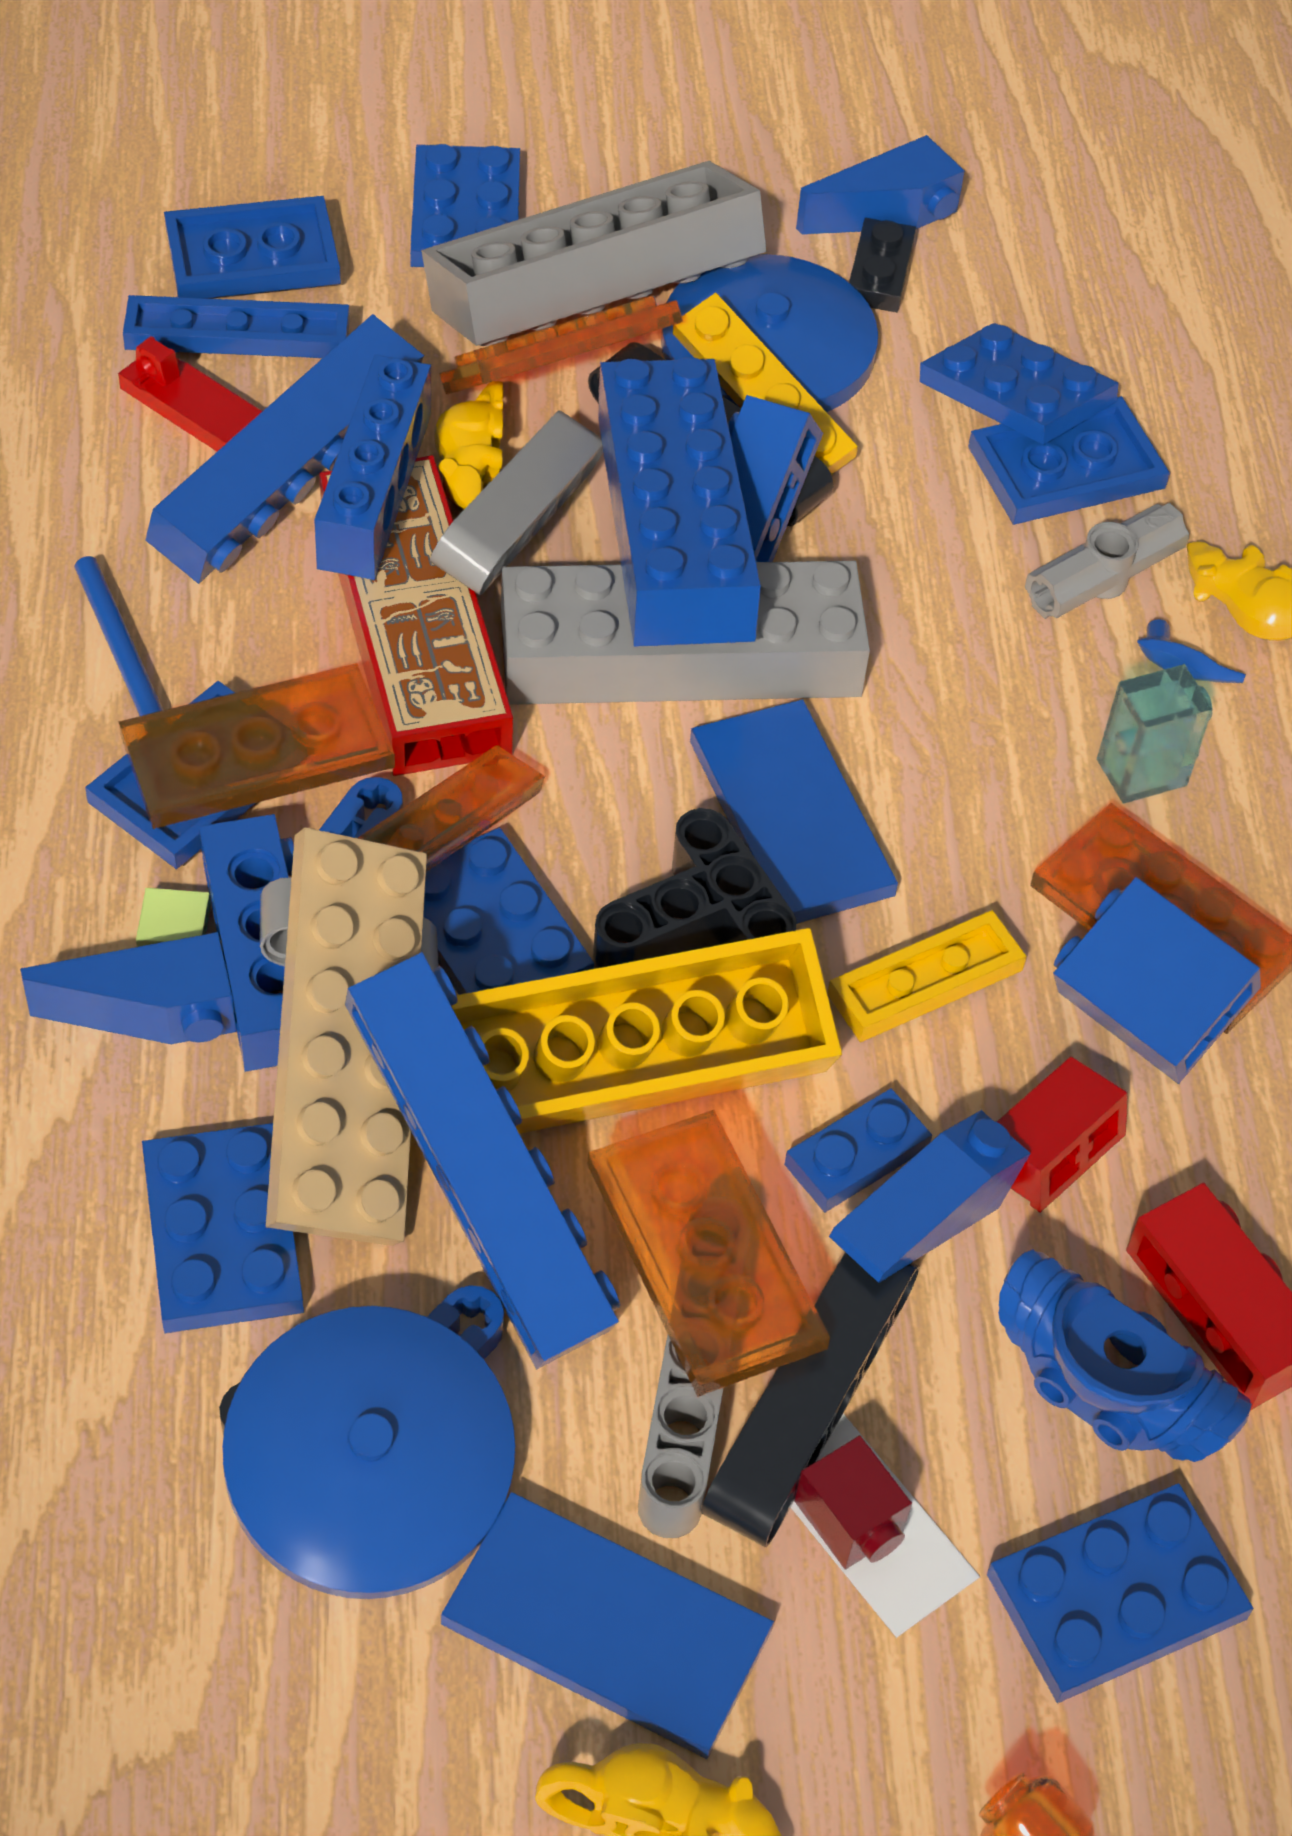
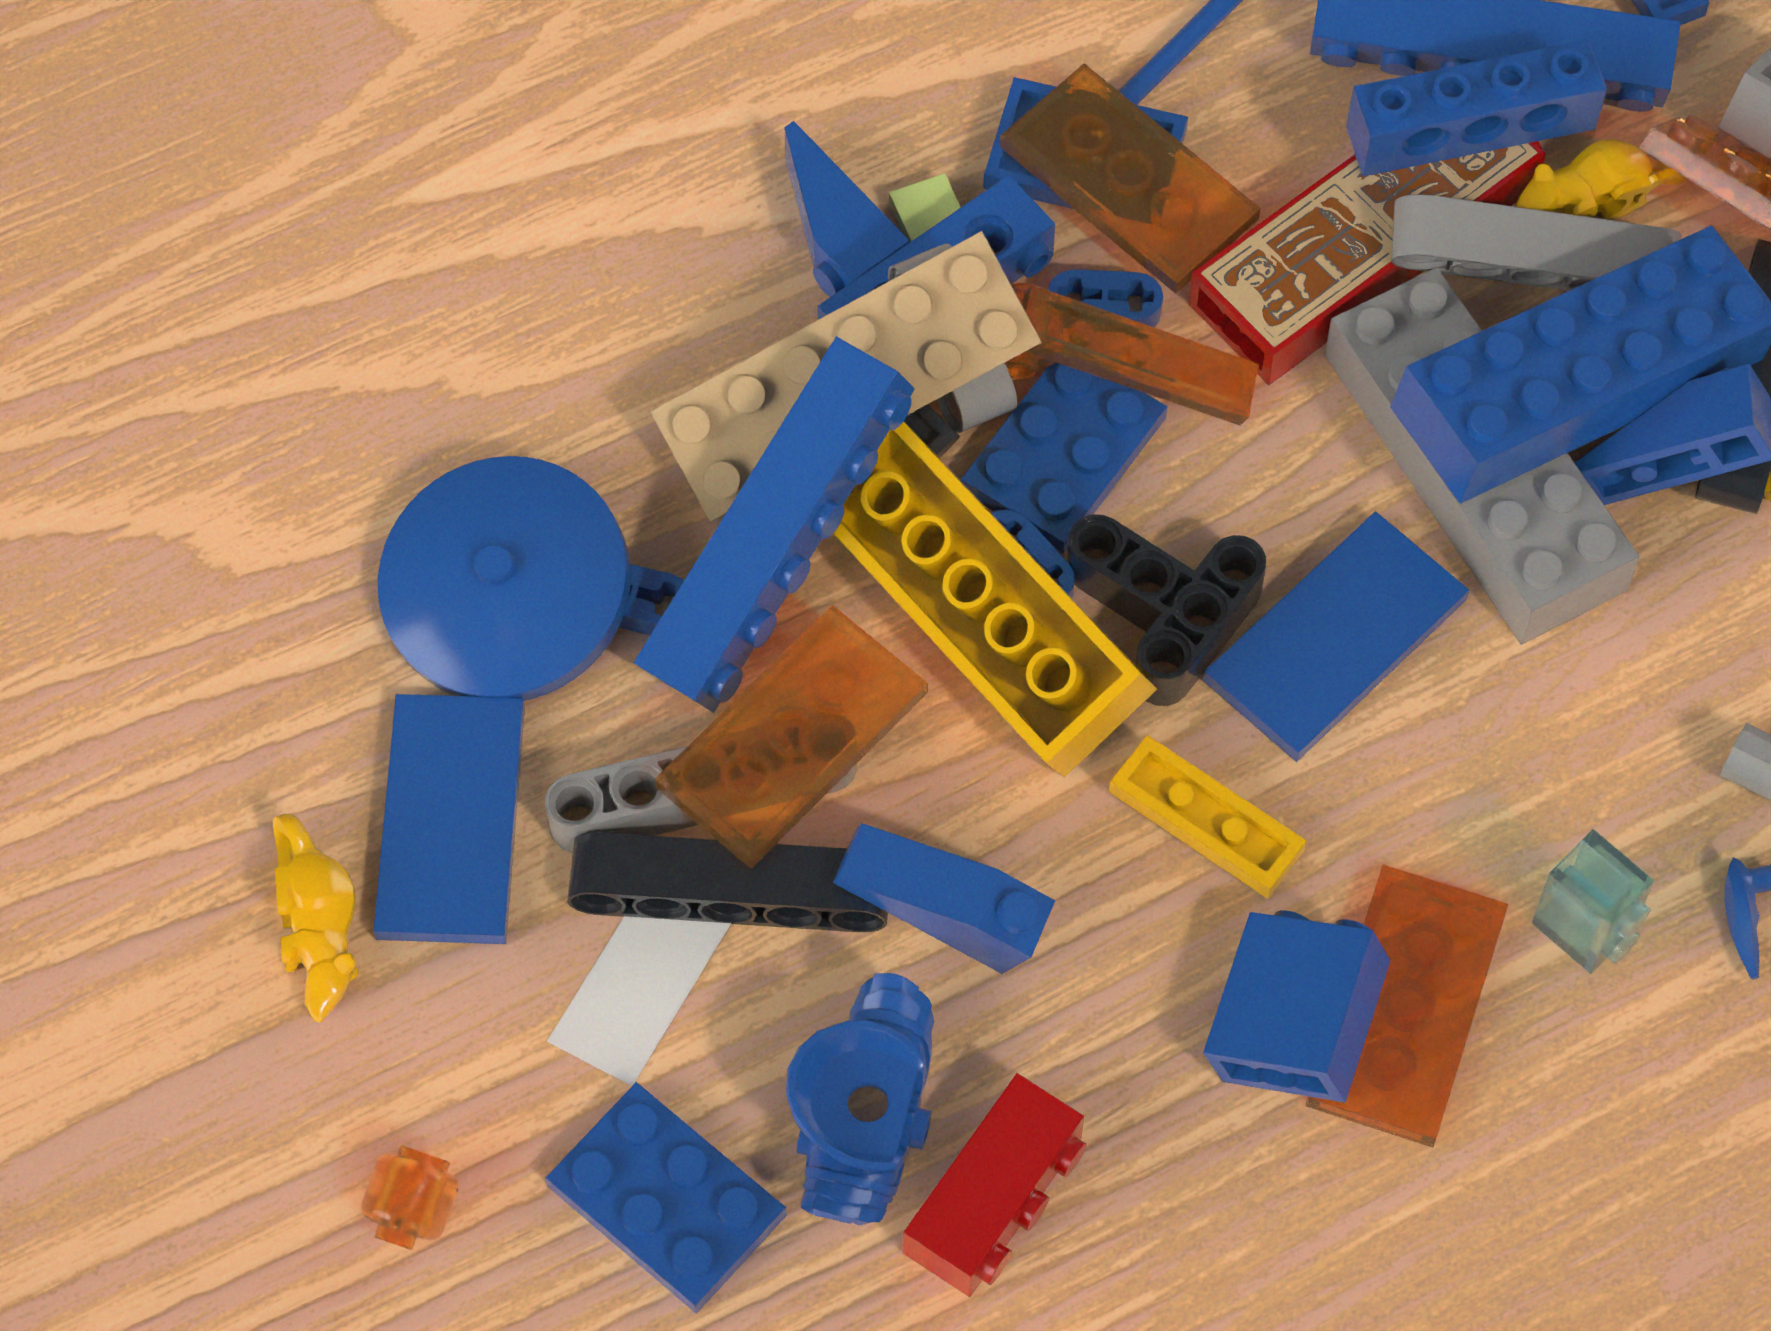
camera: 70 degrees right, 10 degrees up
(211, 1230) = (616, 390): blue plate -> none
(854, 1504) = (632, 952): dark red brick -> none
(857, 1150) = (993, 831): blue plate -> none
(1066, 1129) = (1092, 986): red hinge -> none

